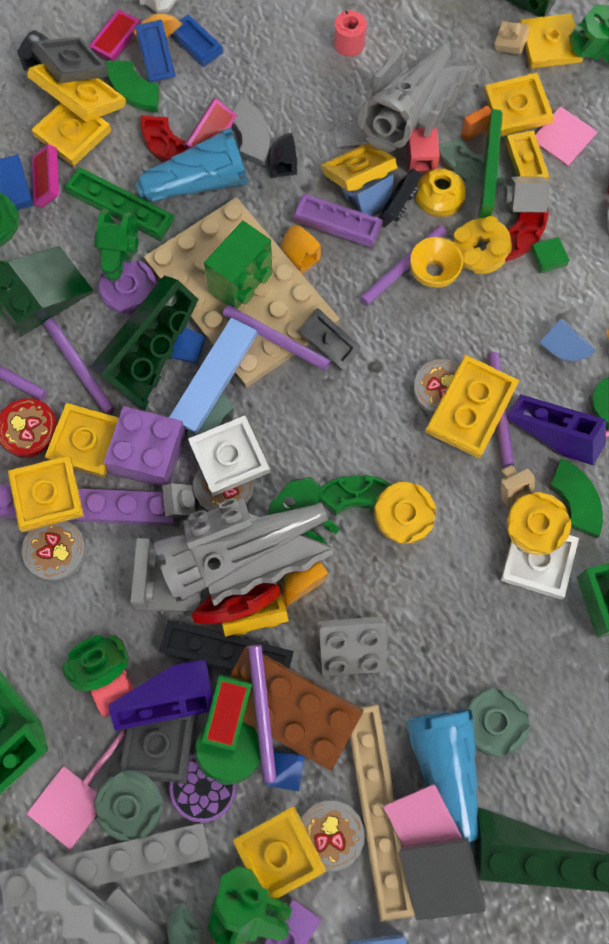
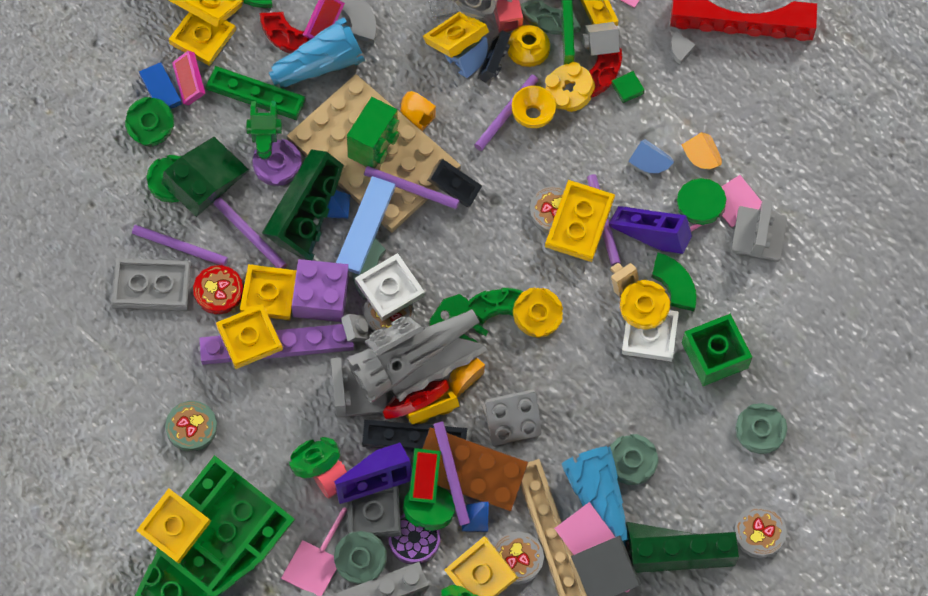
camera: 10 degrees left, 5 degrees down
(54, 551) = (261, 382): tile -> none
(283, 157) = (389, 33): black brick -> none
(337, 220) = (445, 82): medium lavender plate -> none

